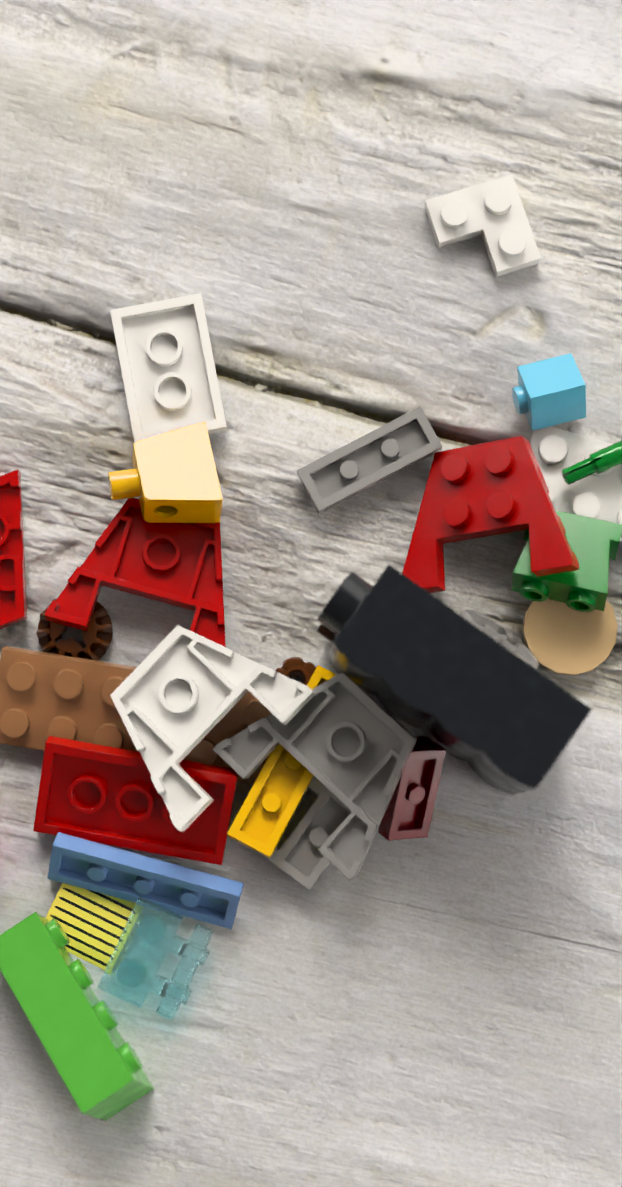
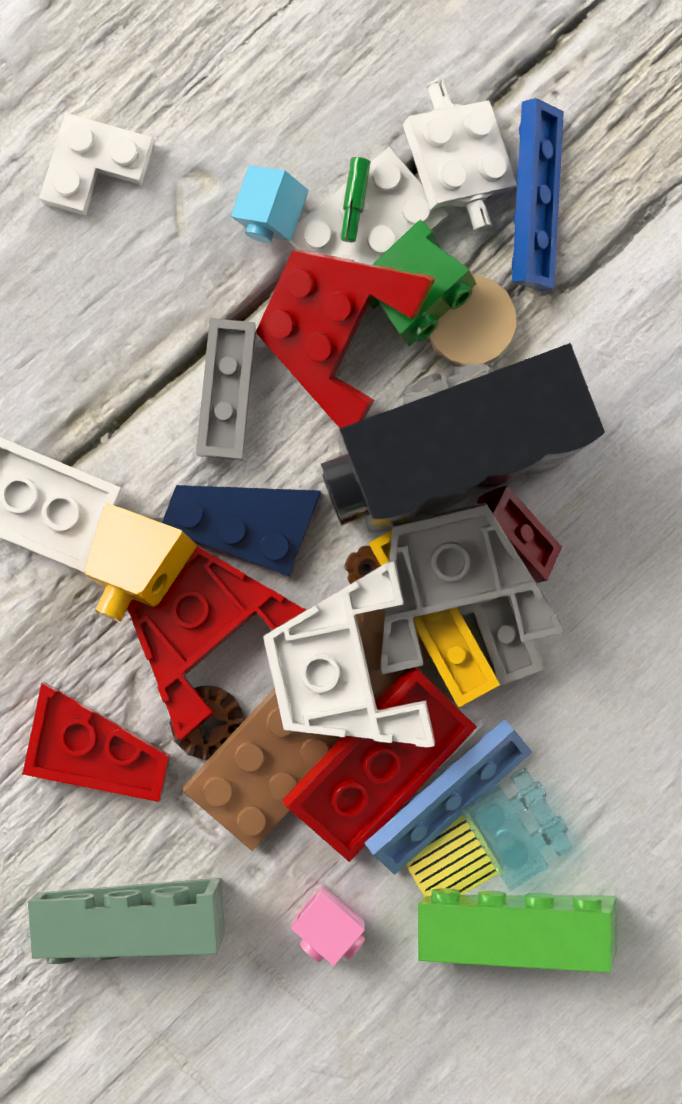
camera: 55 degrees left, 5 degrees up
(267, 552) = (245, 522): none -> dark blue wing

